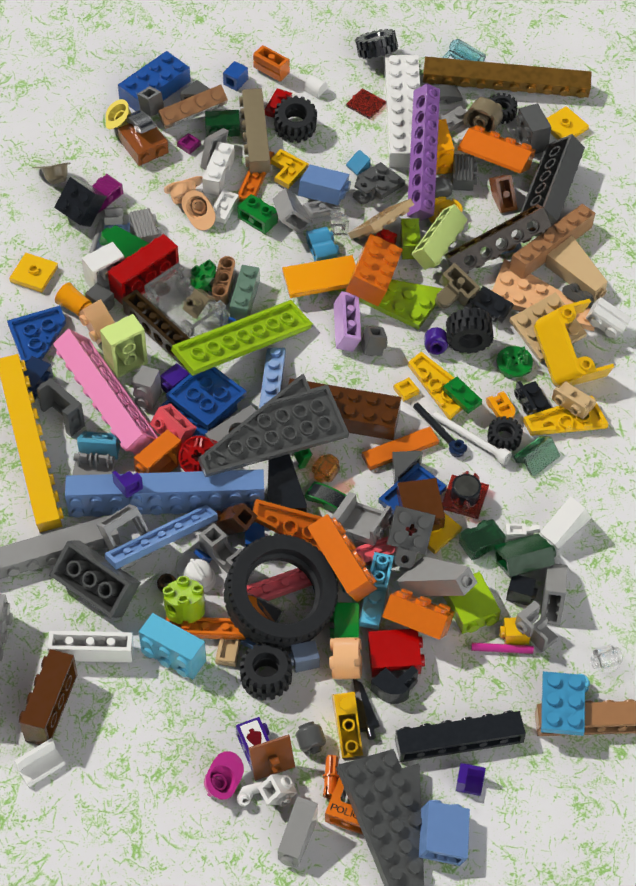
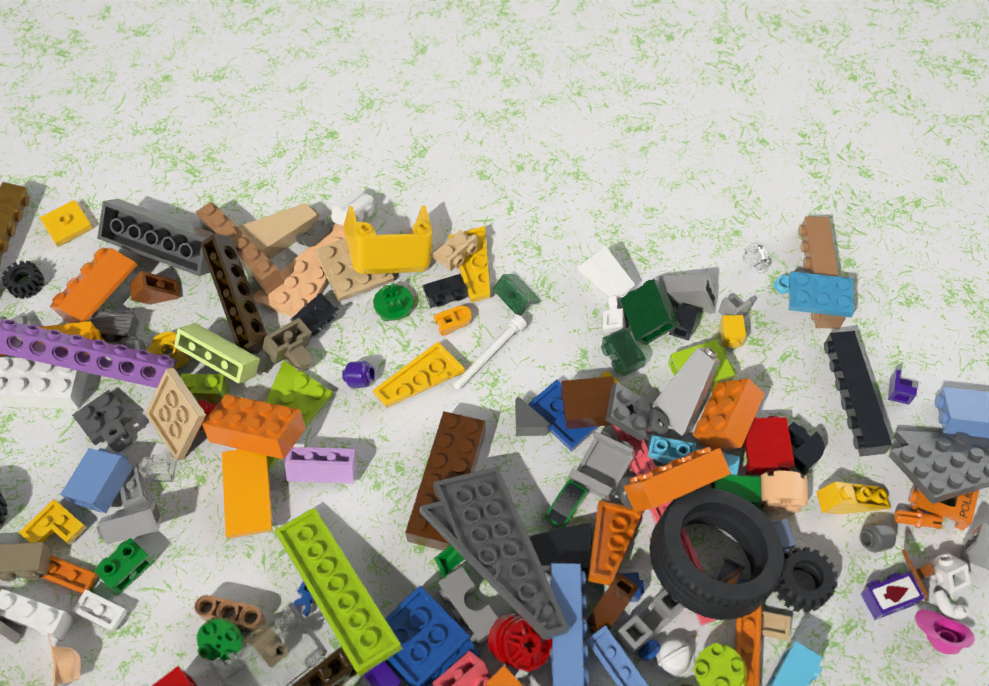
camera: 85 degrees left, 5 degrees up
(198, 210) = (102, 643): light nougat piece -> none
(244, 292) = (255, 586): sand green brick -> none
(272, 374) = (406, 556): medium blue plate -> none
(322, 244) = (193, 490): dark azure brick -> none
(325, 468) = (530, 502): clear orange head -> none
(359, 162) = (65, 440): dark azure slope -> none
(366, 714) = (845, 476): black bar -> none
(374, 341) = (354, 436): dark grey brick -> none
(406, 389) = (418, 412): yellow tile -> none
(415, 441) = (500, 424): orange tile -> none
(433, 423) = (468, 388): black bar -> none
(457, 452) = (503, 371): dark blue plate -> none
(462, 395) = (440, 352): green plate -> none
(465, 492) = (566, 361): piece -> none
(469, 330) = (357, 334): black tyre -> none
(484, 113) = (35, 294): dark tan brick -> none
(488, 647) = (748, 348): dark pink bar -> none
(505, 425) = (485, 310): black tyre -> none
(526, 618) = (730, 313): light grey bracket -> none
(533, 127) = (70, 246): dark grey brick -> none

